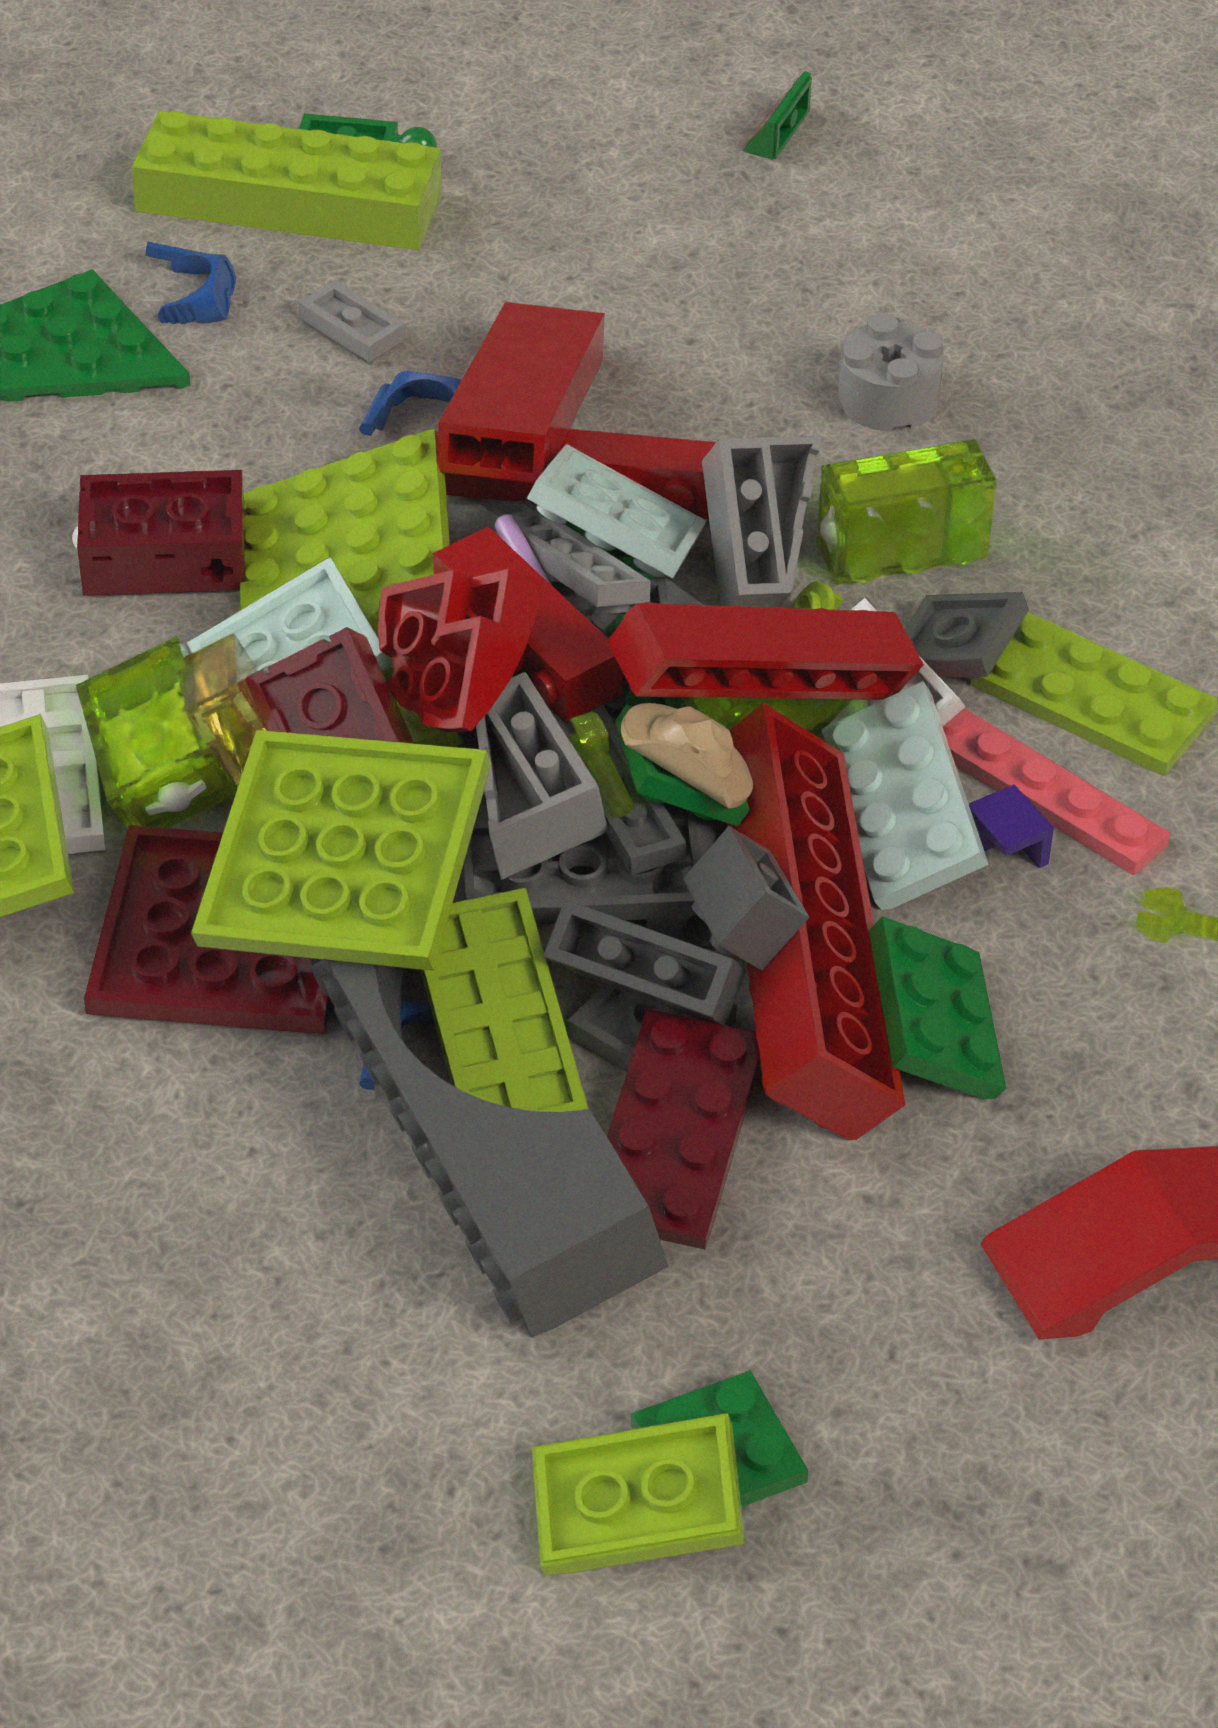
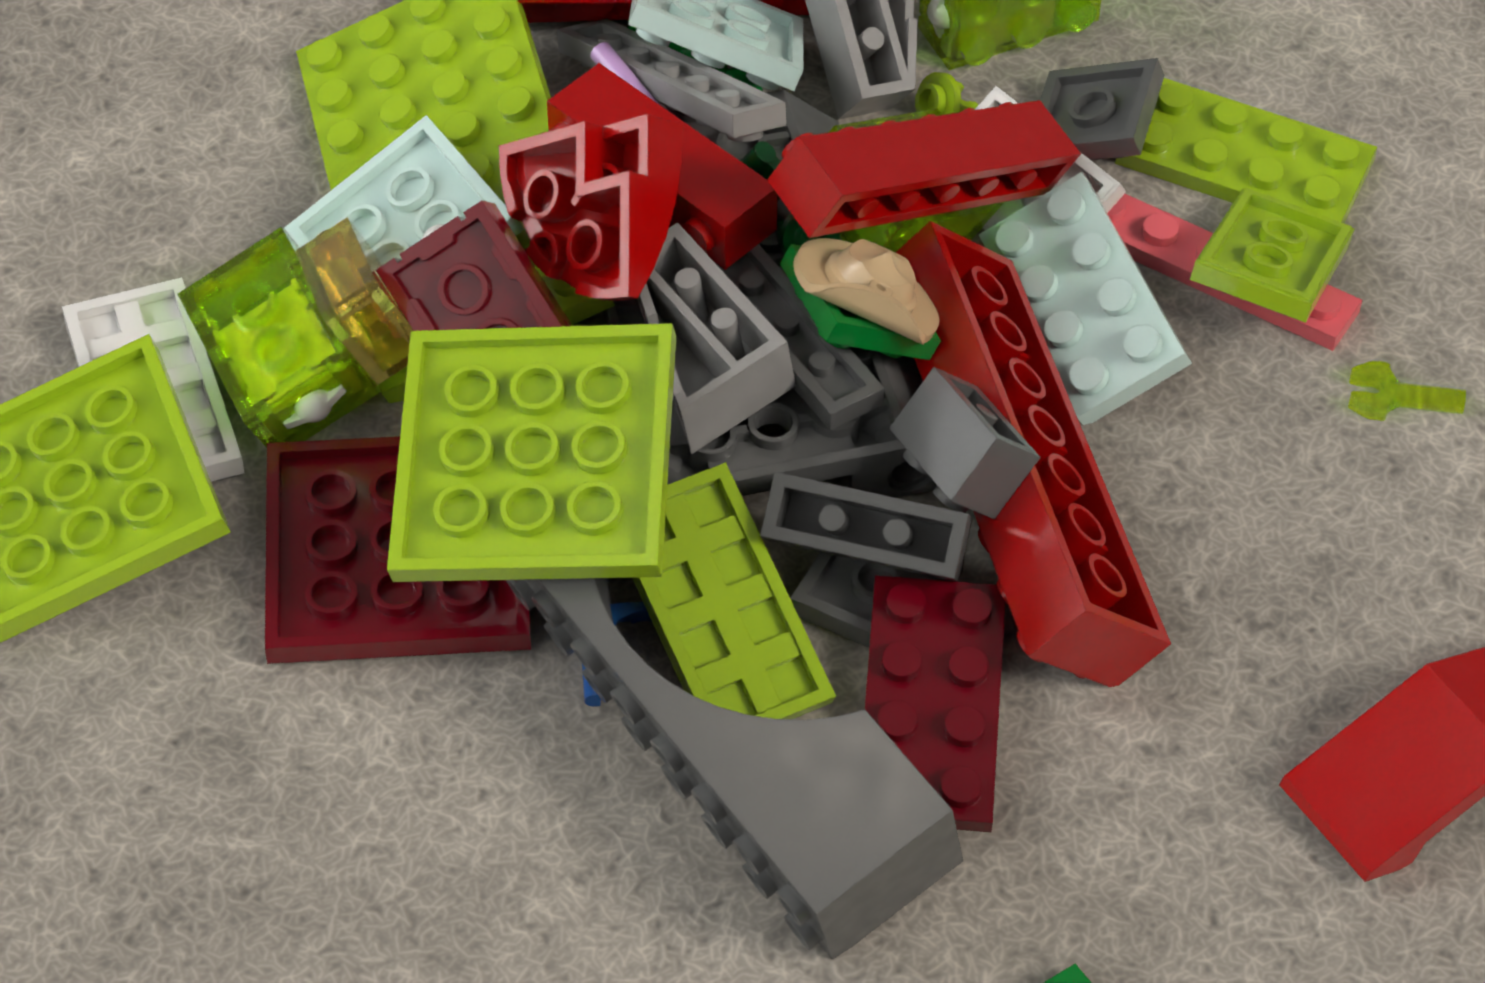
camera: 10 degrees left, 5 degrees up
(161, 532) = (226, 105): dark red piece -> none
(593, 747) = (765, 291): clear neon green bar -> none
(936, 1009) = (1174, 531): green plate -> none
(1013, 824) = (1205, 316): dark purple panel -> none
(1091, 779) = (1273, 254): none -> lime tile

